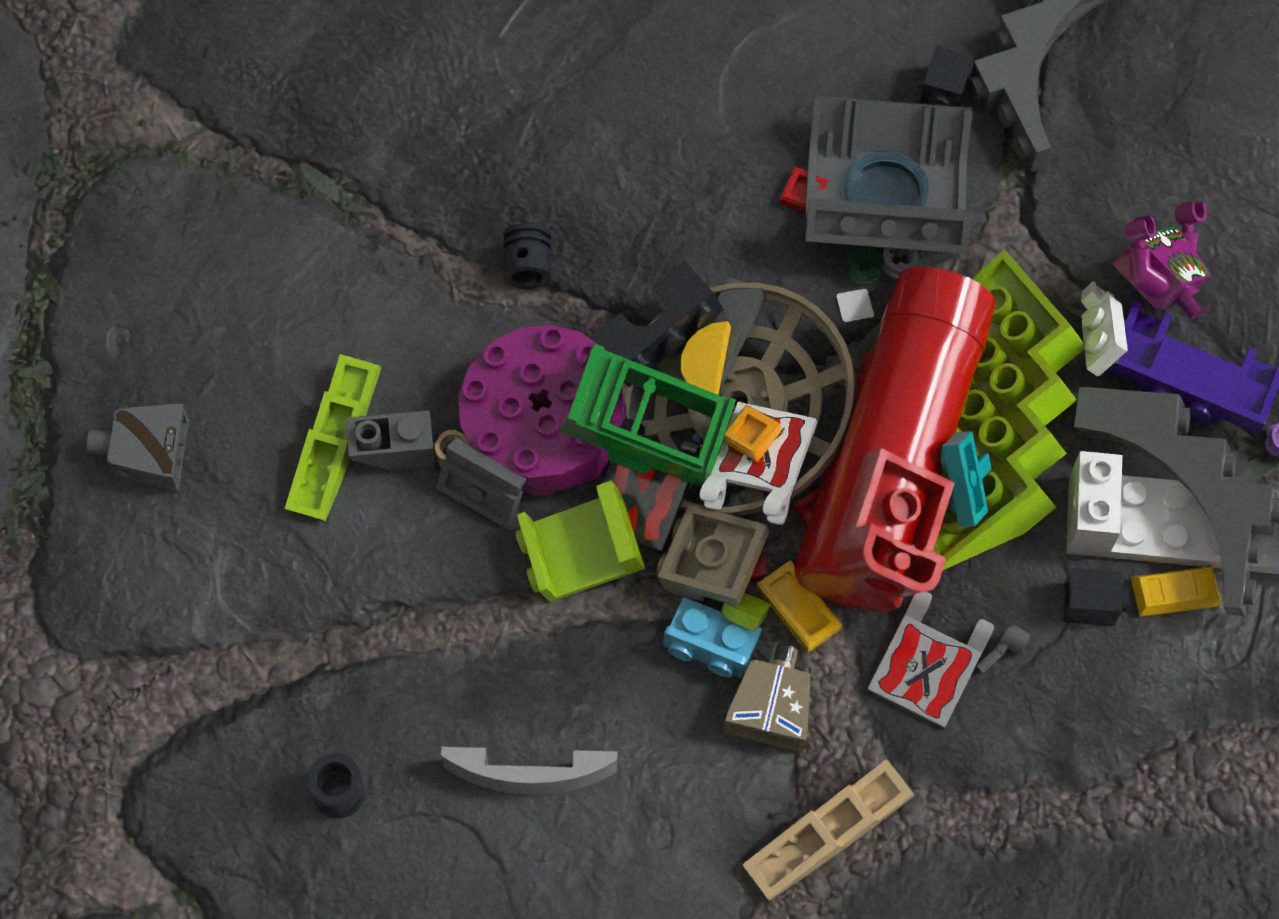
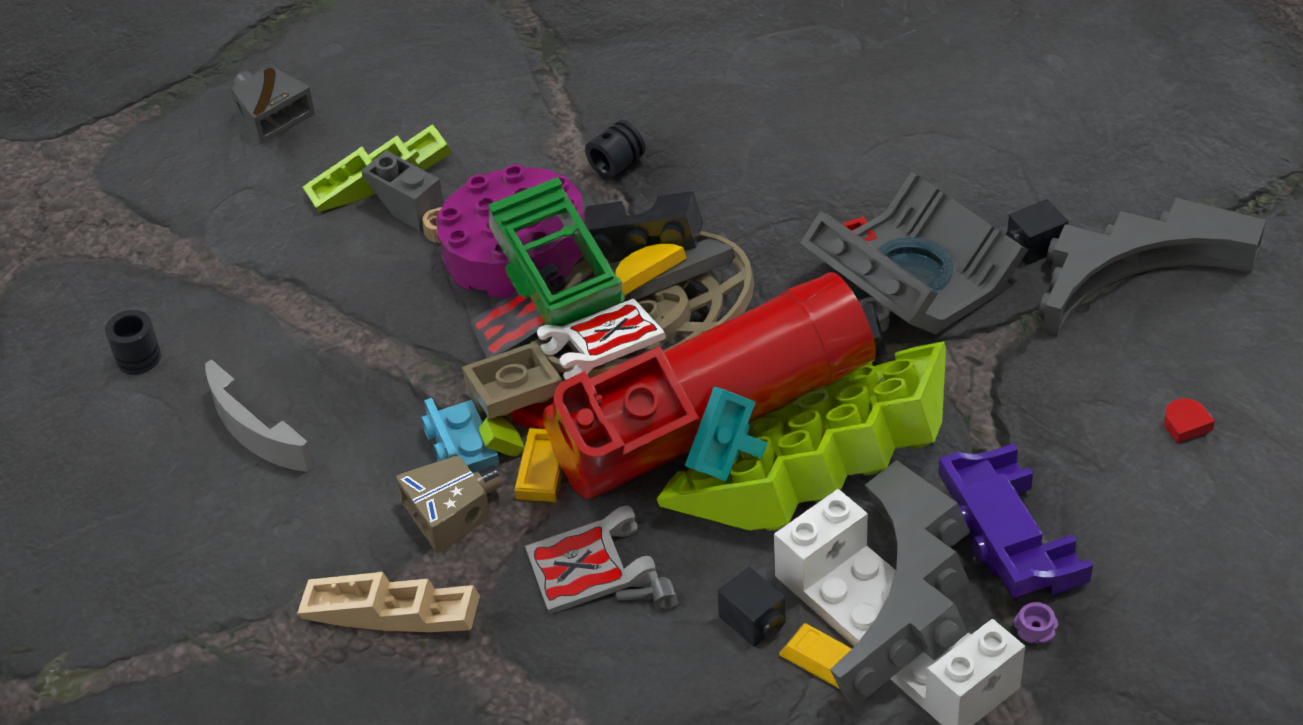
camera: 50 degrees right, 20 degrees down
(481, 483) = (425, 245): dark grey plate -> none
(580, 546) = (441, 325): lime panel -> none
(752, 433) = (614, 314): light orange tile -> none
(1102, 329) = (962, 439): white hinge -> none
(1166, 261) = (1063, 435): magenta torso -> none
(1210, 175) = (1187, 419): none -> red tile

